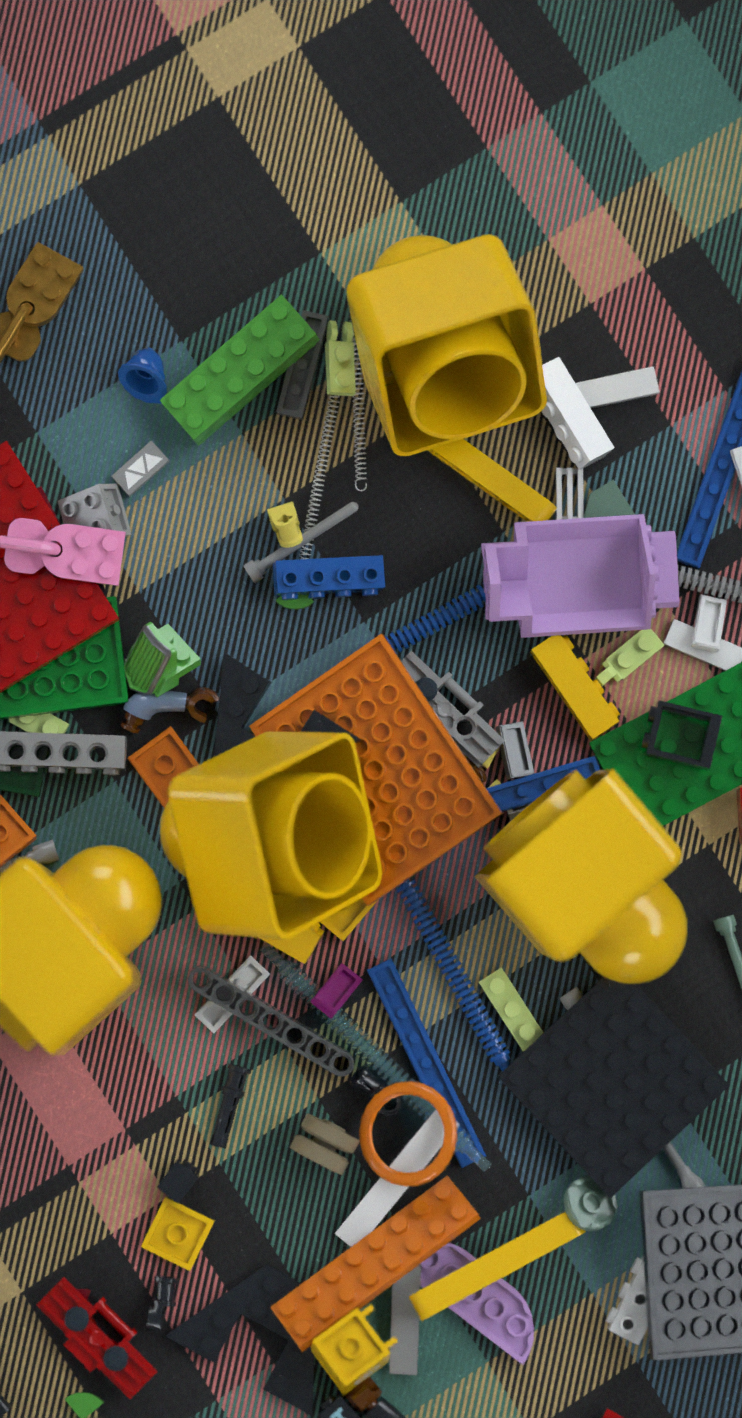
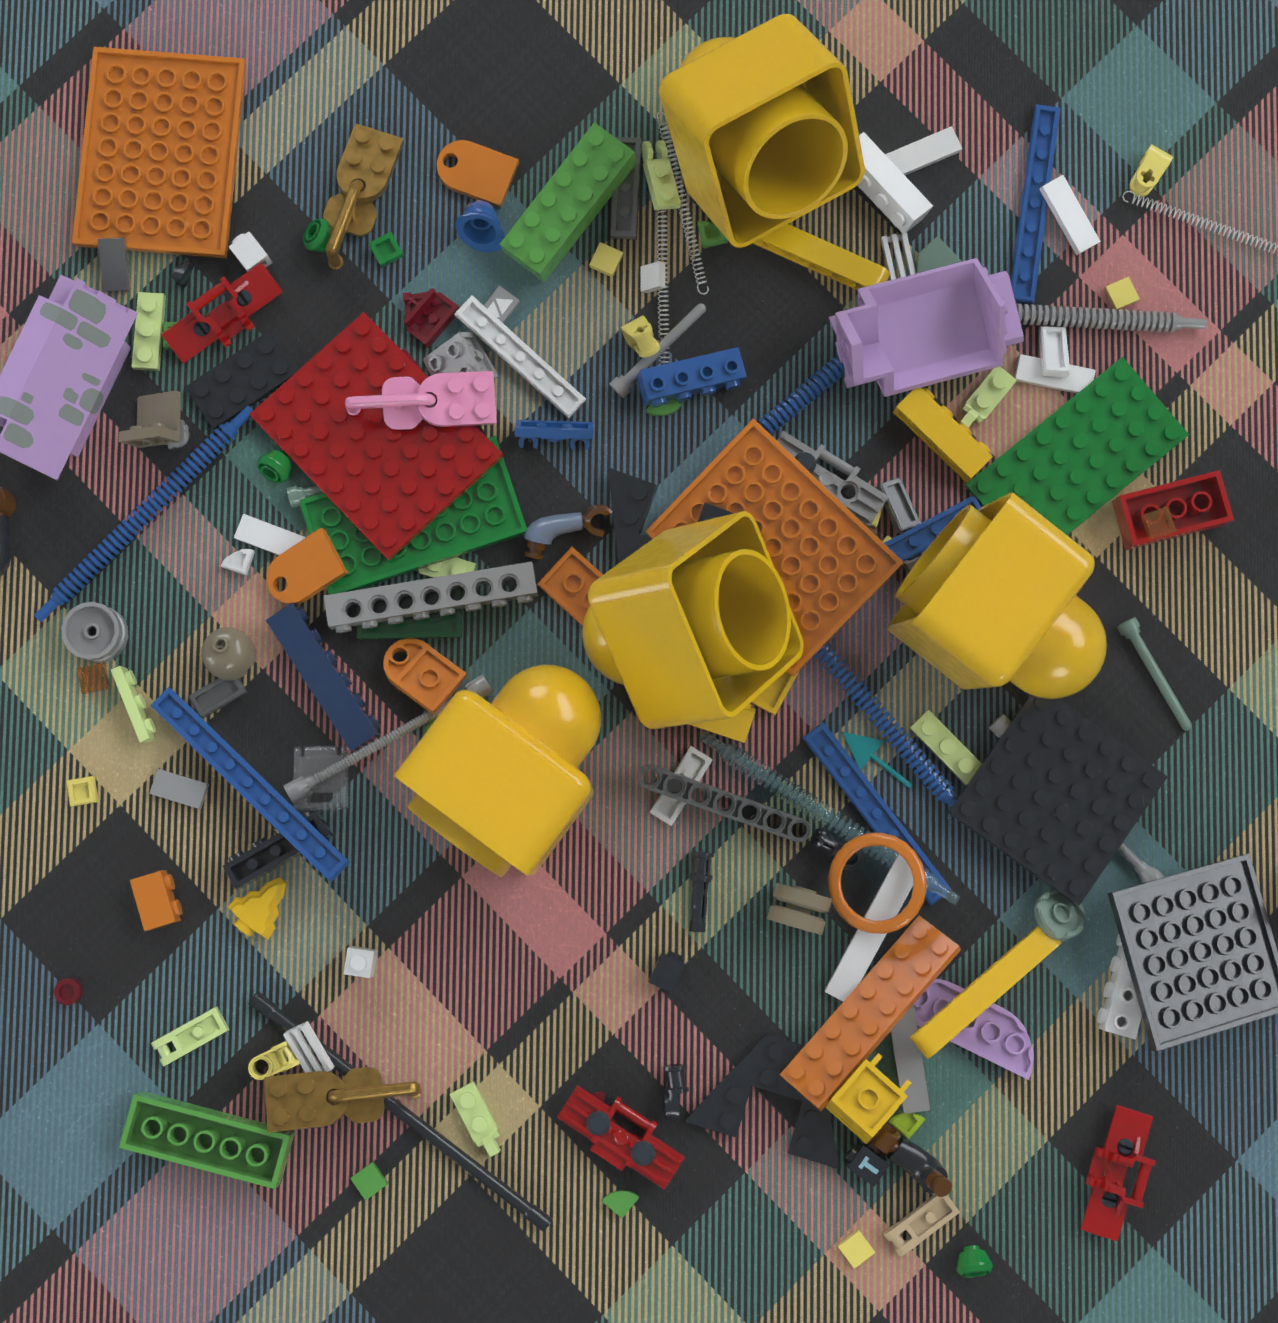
camera: 10 degrees left, 0 degrees up
(42, 380) = (386, 249): none -> green plate
(72, 456) = (428, 315): none -> dark red slope
(154, 317) = (479, 171): none -> orange tile
(157, 519) = (520, 357): none -> white tile
(158, 660) = (548, 486): bright green piece -> none
(176, 603) = (554, 431): none -> blue plate
(177, 1233) = (676, 1022): yellow plate -> none
(267, 435) = (606, 259): none -> light yellow tile
(311, 463) = (652, 277): none -> white tile
(336, 990) = (779, 762): magenta tile -> none
(377, 432) = (710, 234): none -> bright green tile
(390, 1383) = (906, 1123): none -> lime tile
(427, 994) = (864, 749): none -> teal piece
(709, 741) = (1080, 457): black window -> none

